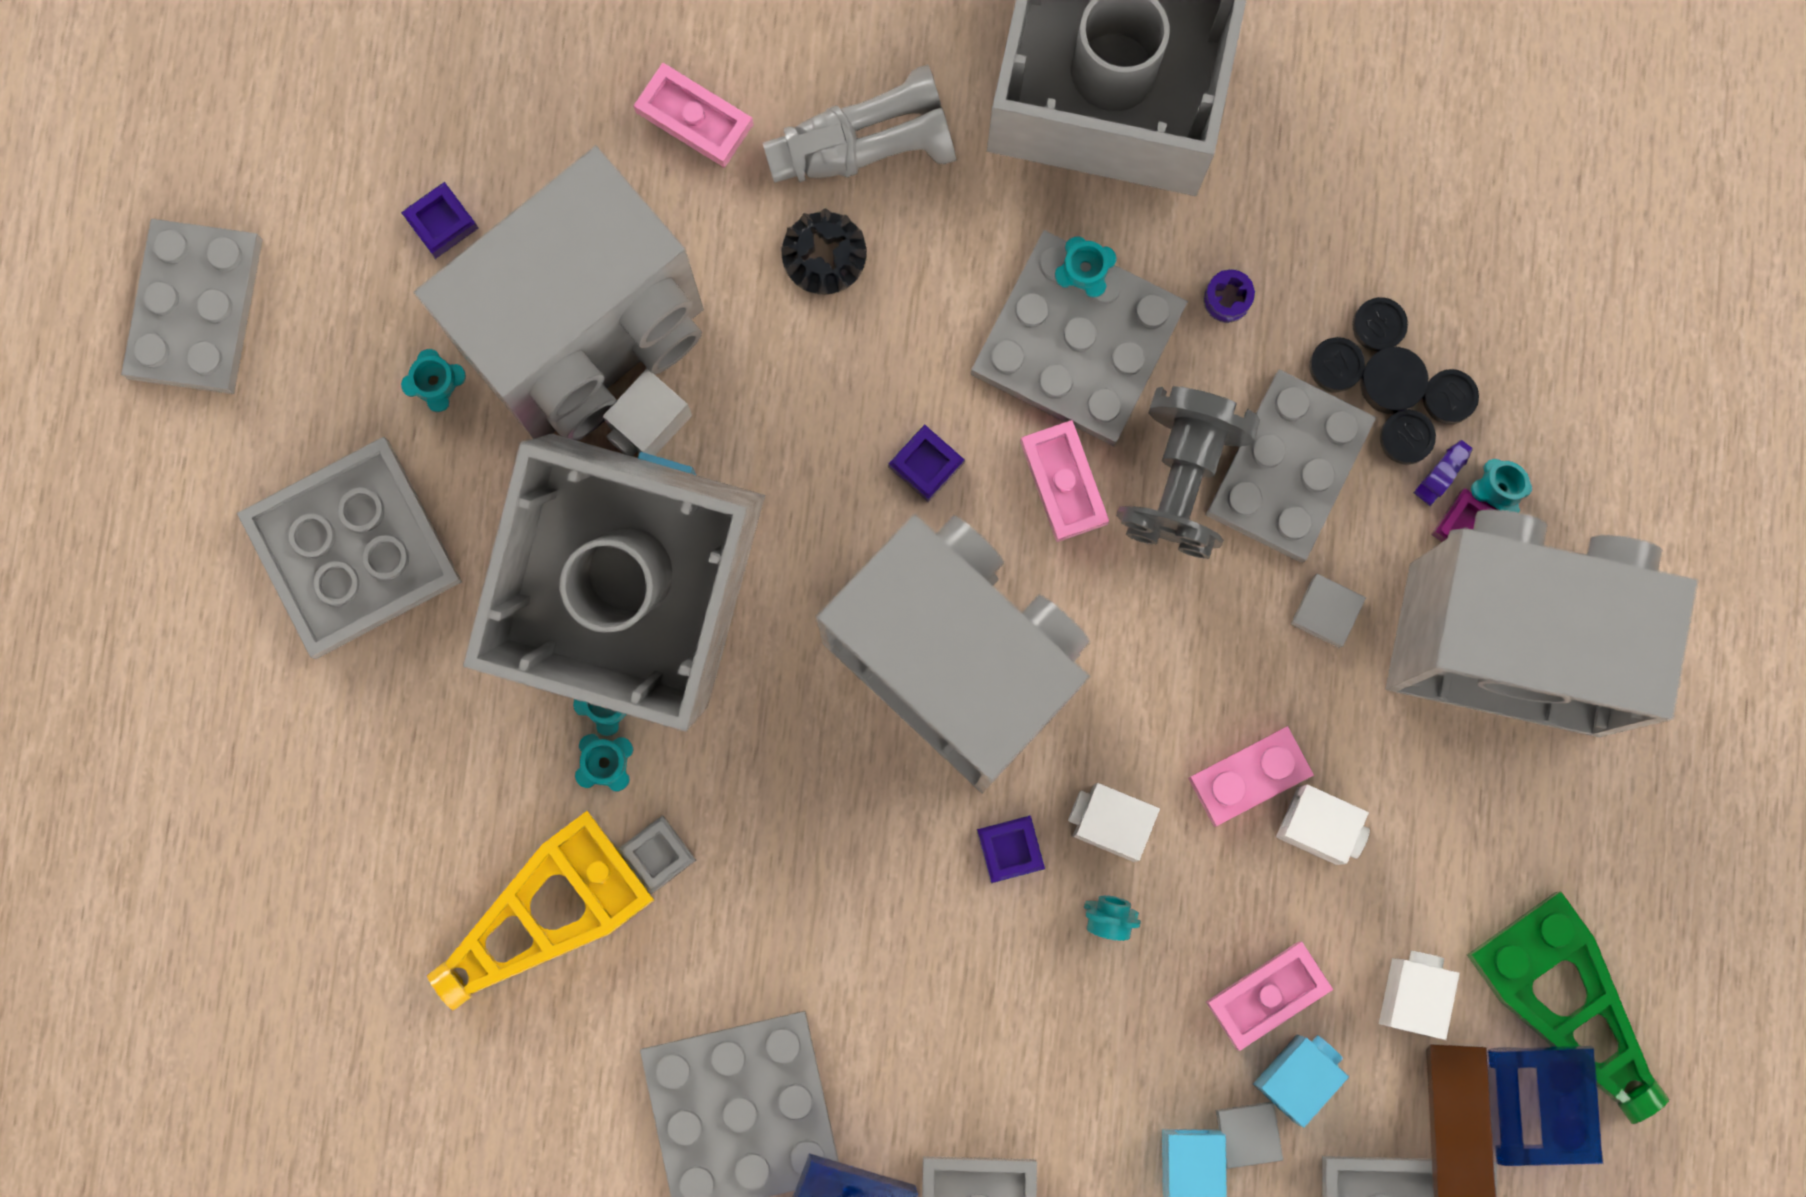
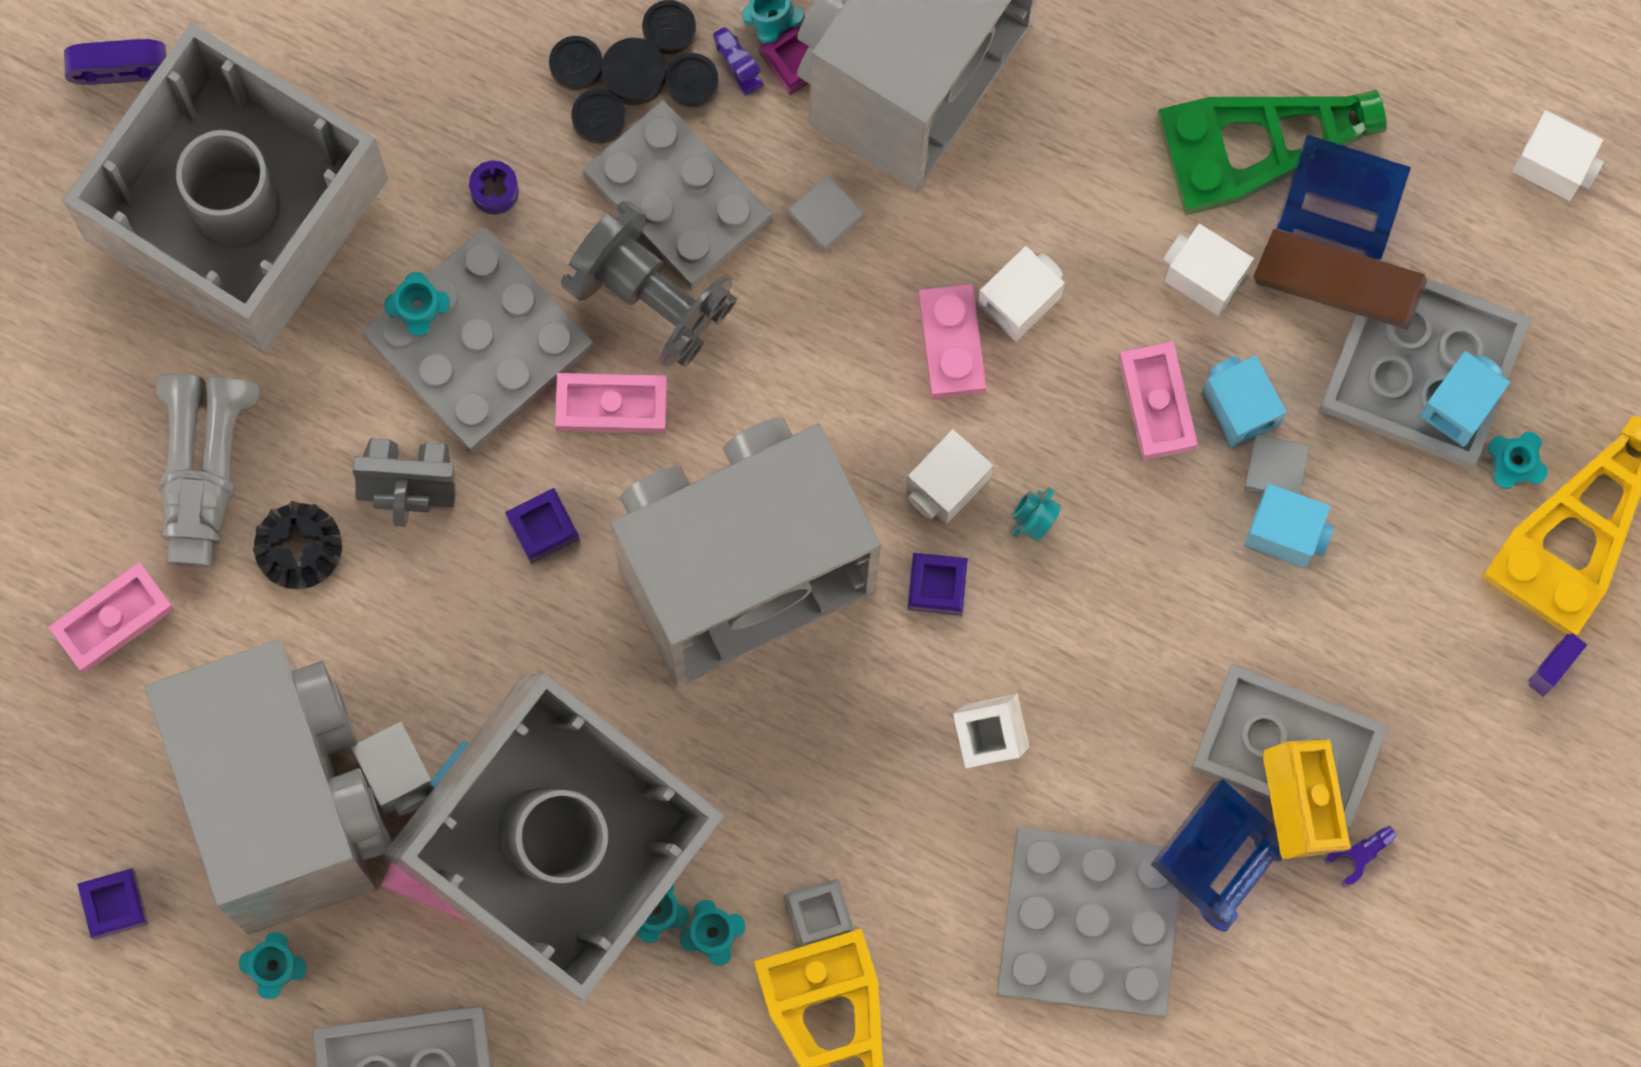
camera: 70 degrees left, 5 degrees down
(882, 953) = (991, 731): none -> white brick
(912, 324) = (404, 483): none -> dark grey hips

